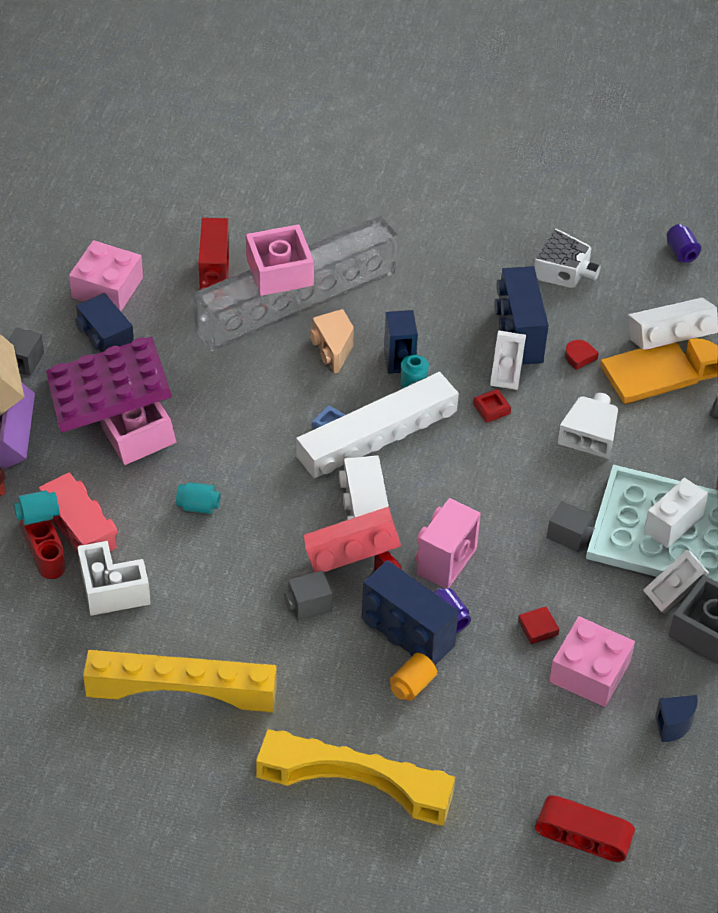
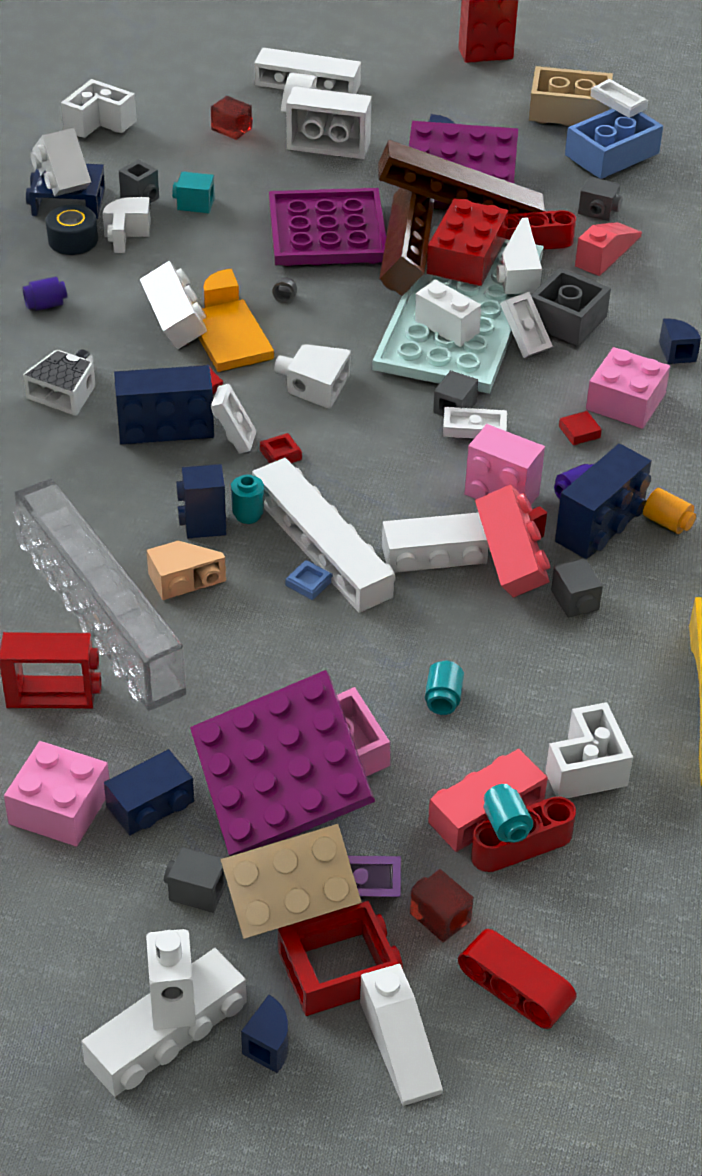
camera: 90 degrees left, 5 degrees down
(279, 260) = (115, 561): bright pink brick -> none
(533, 540) = (470, 421): none -> white plate

